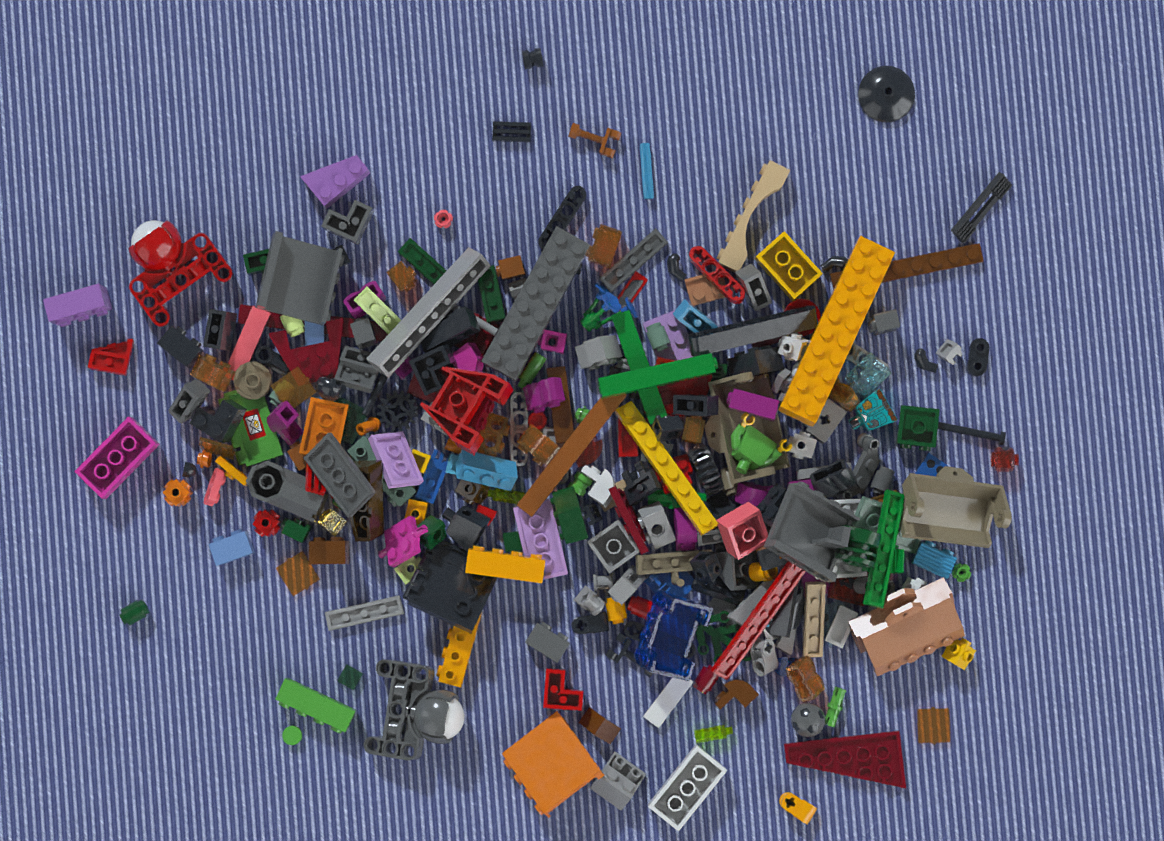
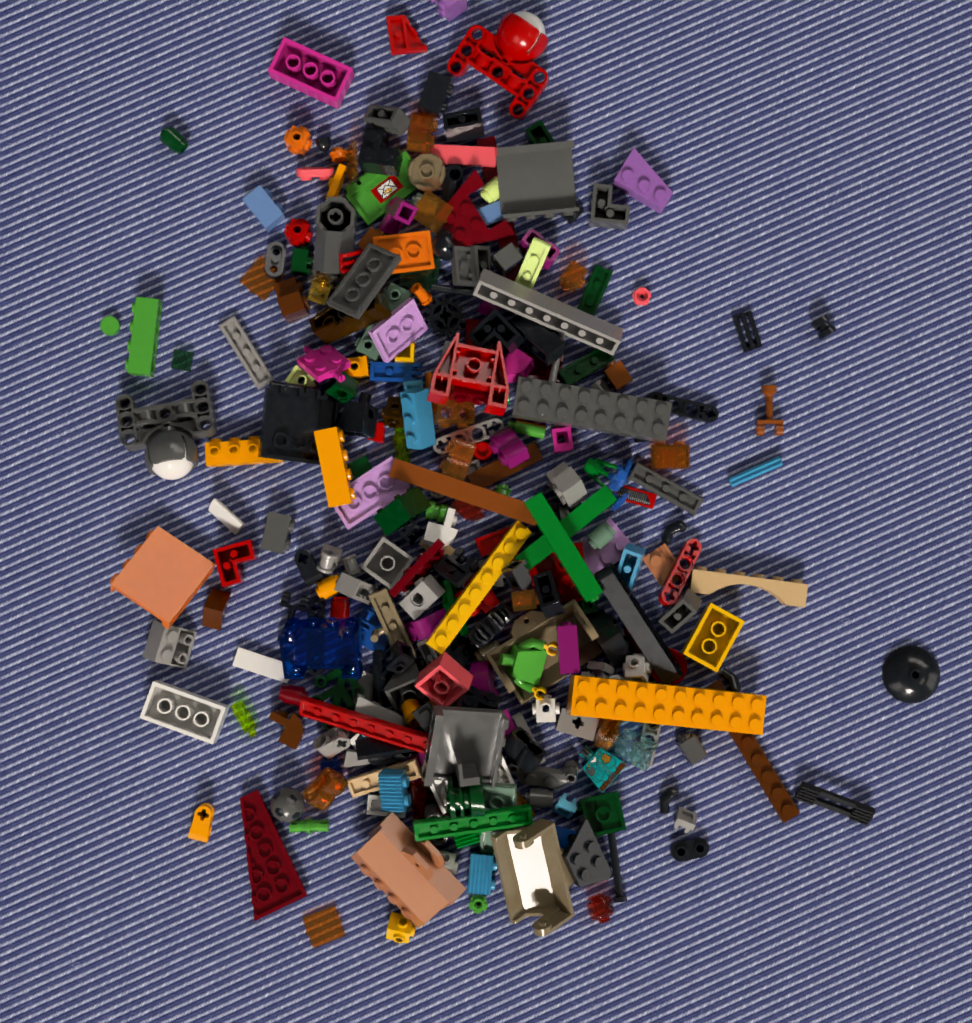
camera: 65 degrees right, 0 degrees up
(286, 555) = (275, 261): none -> black plate
(514, 686) = (226, 516): none -> white slope
(829, 613) = (393, 790): none -> dark azure brick
(899, 460) = (564, 807): none -> medium azure tile
(952, 456) = (585, 858): none -> black wing

